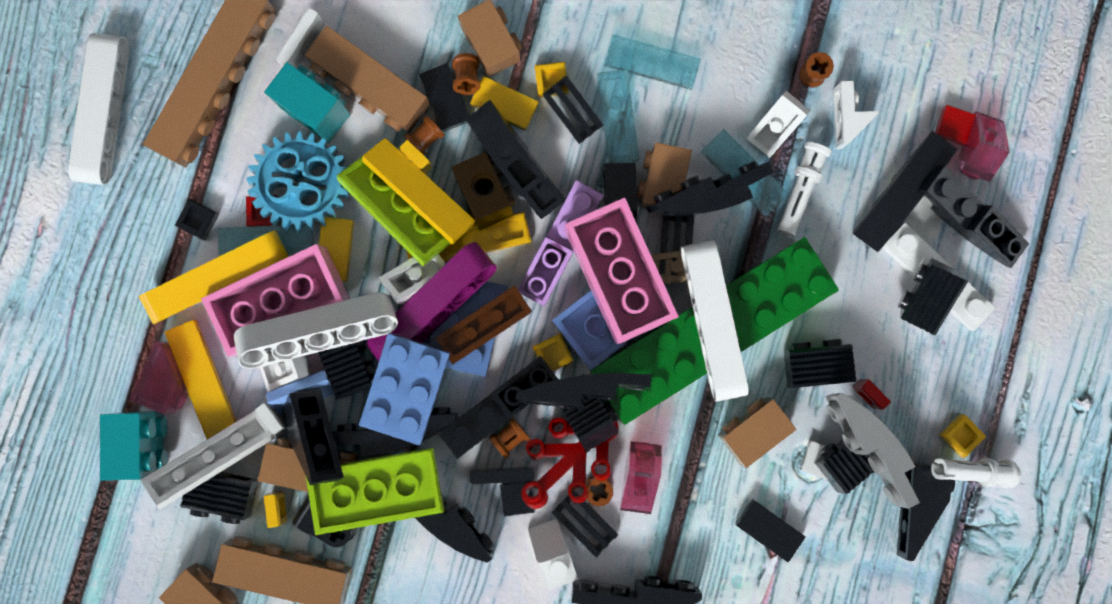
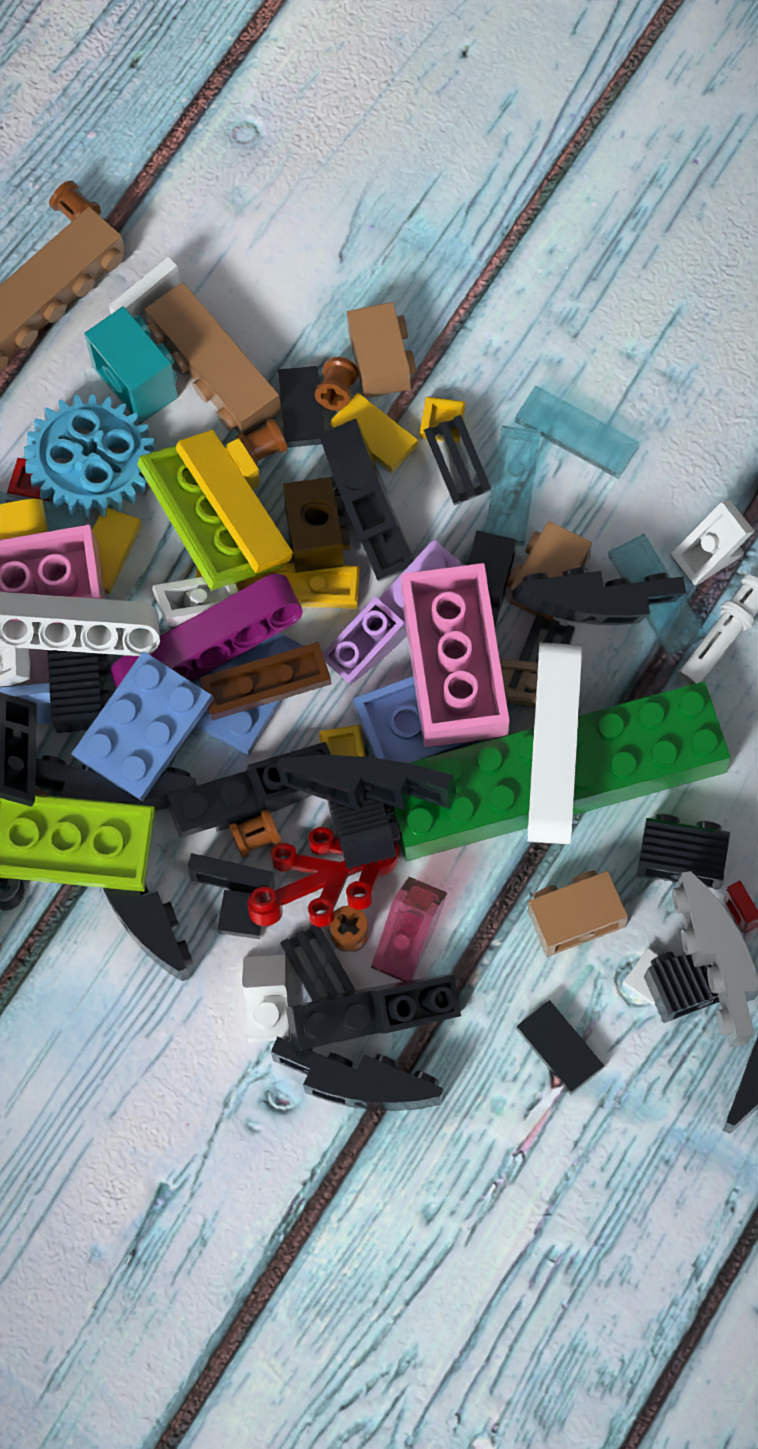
camera: 25 degrees right, 15 degrees down
(633, 545) = (373, 1011): none -> black slope

